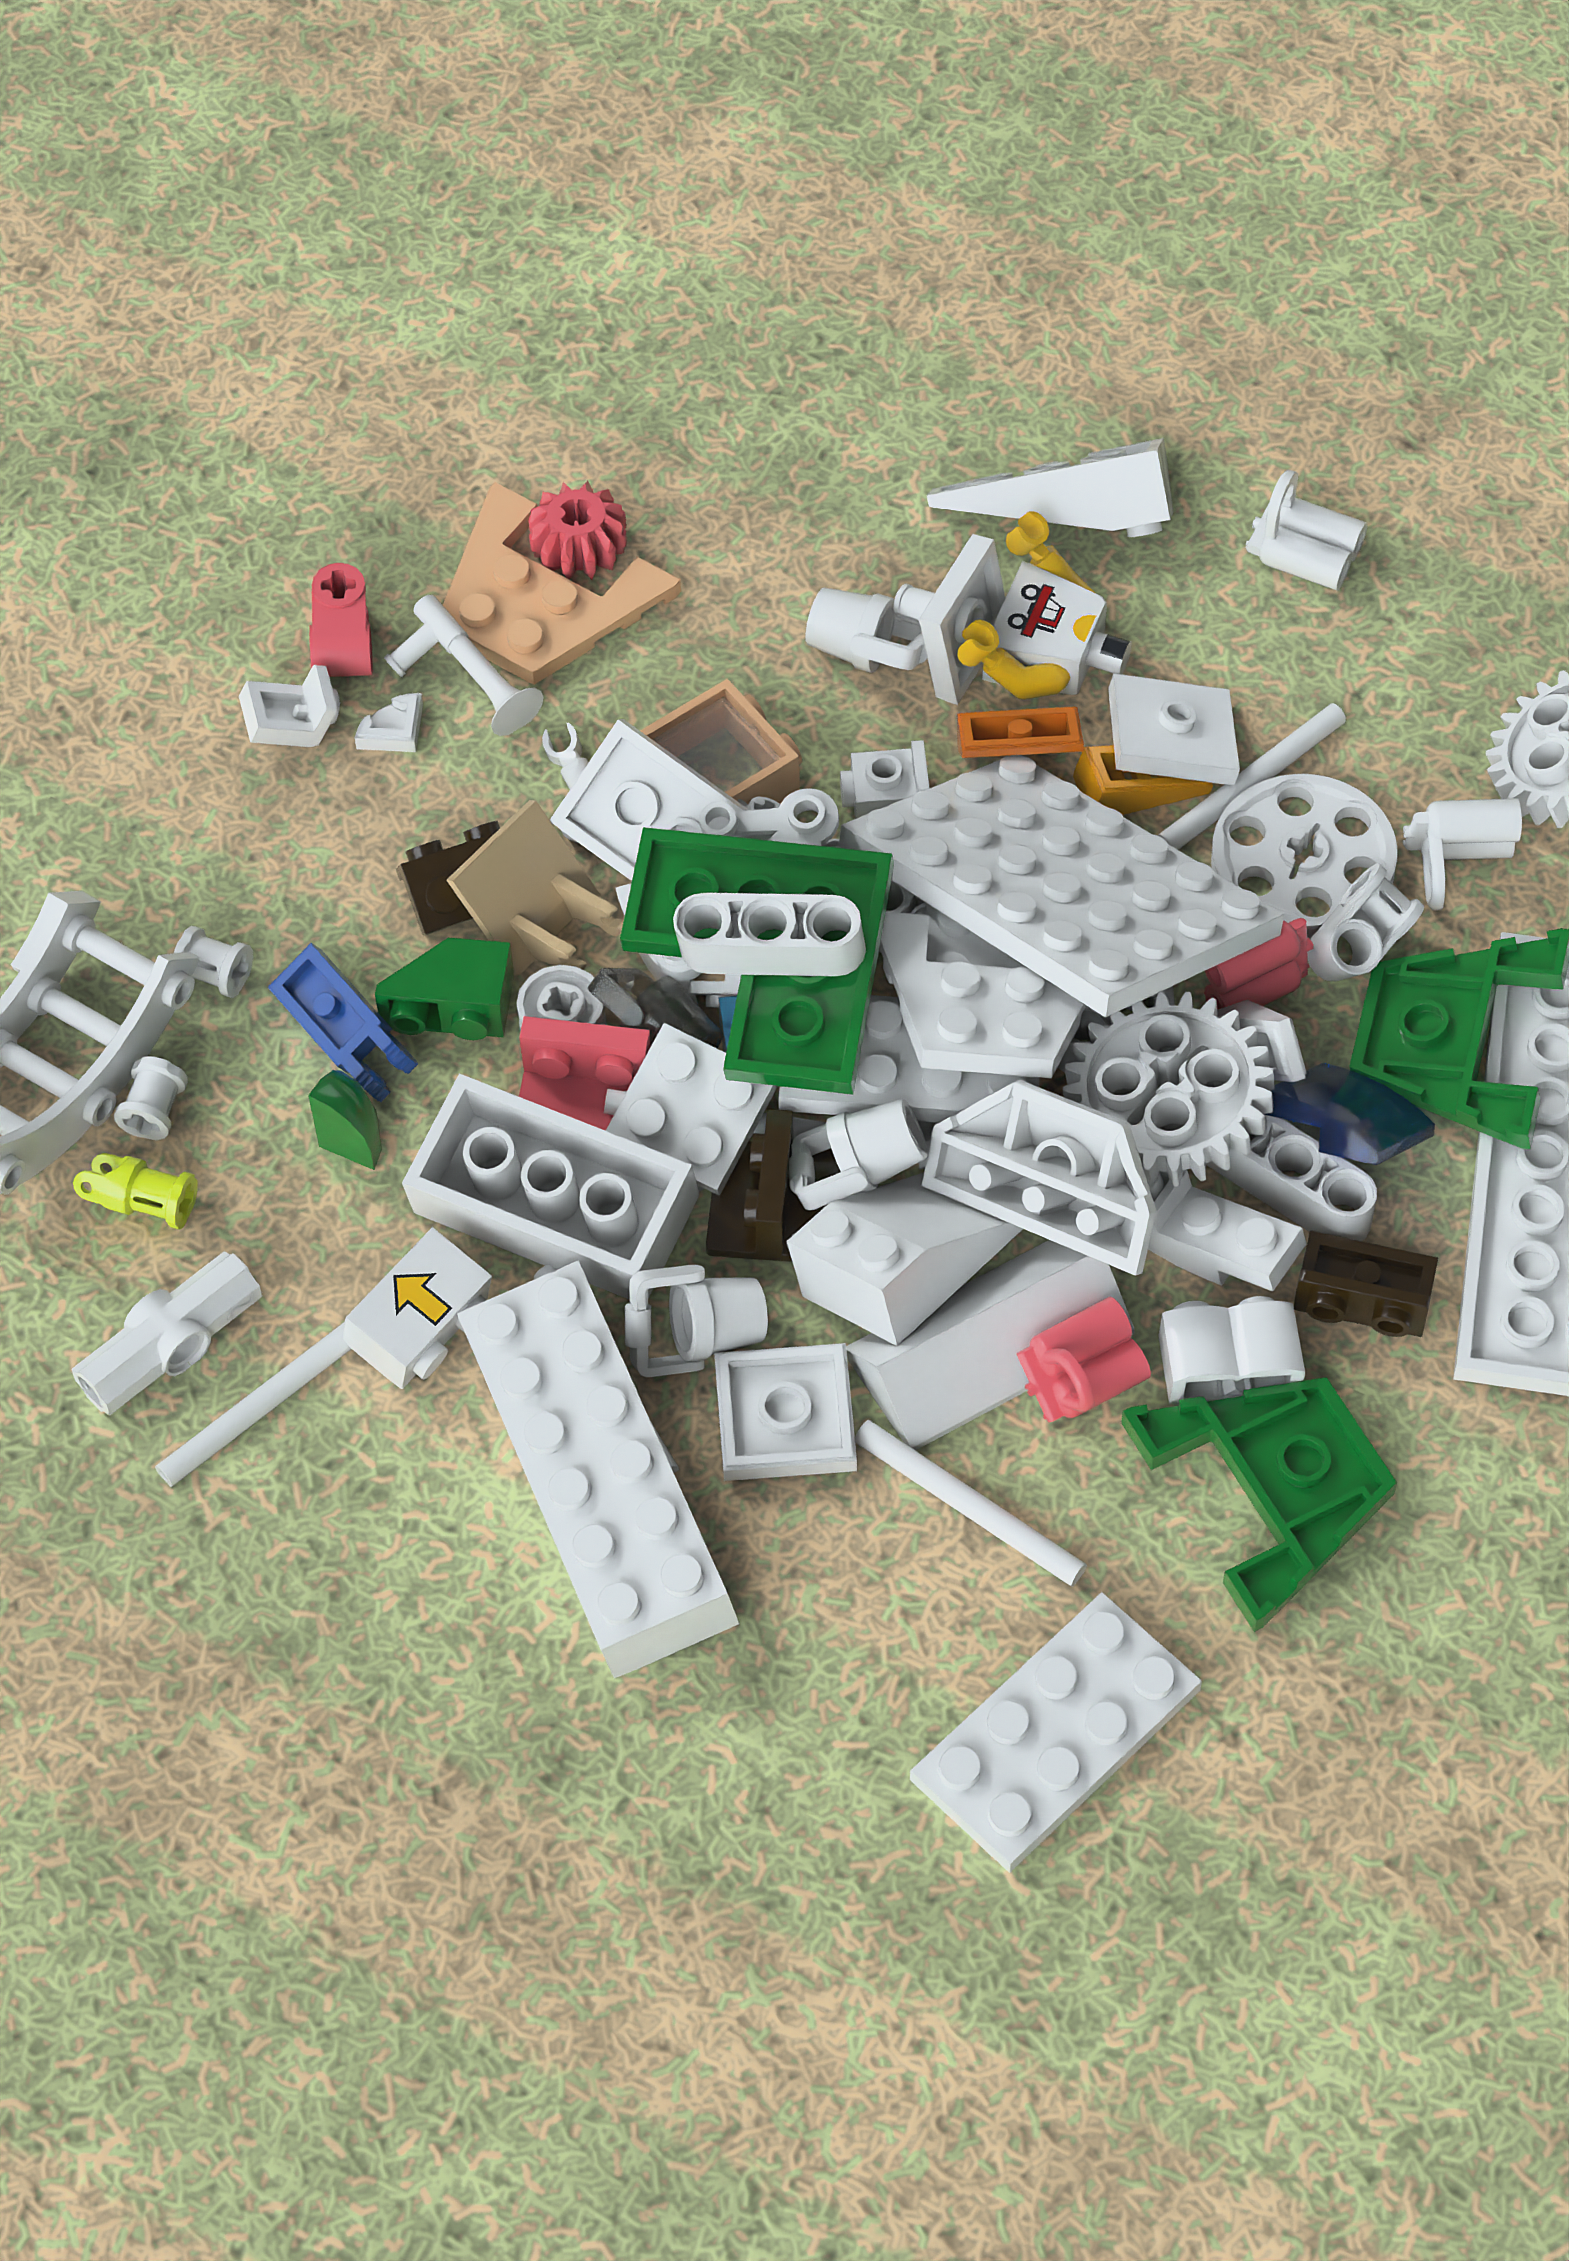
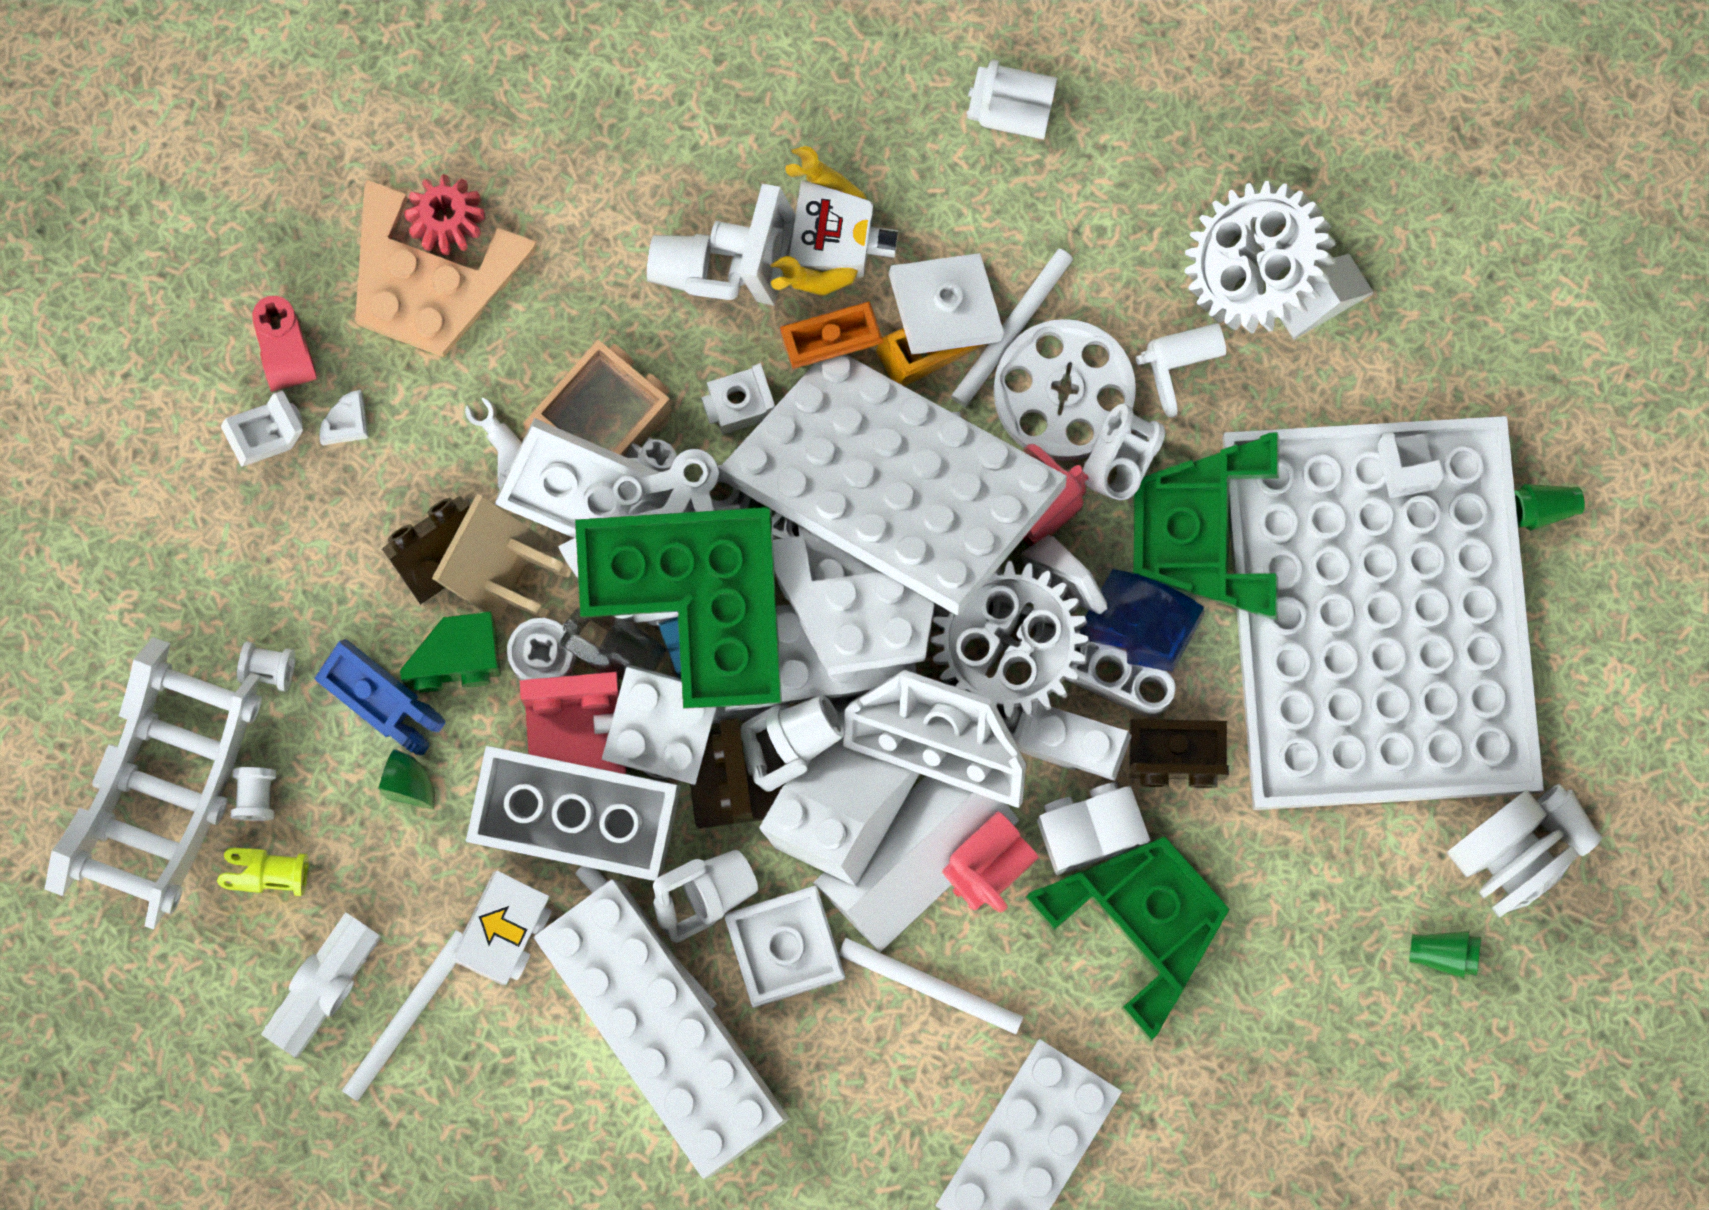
camera: 15 degrees left, 20 degrees up
(512, 706) = (362, 330): white piece -> none
(746, 915) = (671, 596): white beam -> none
(1104, 492) = (841, 94): white wedge -> none

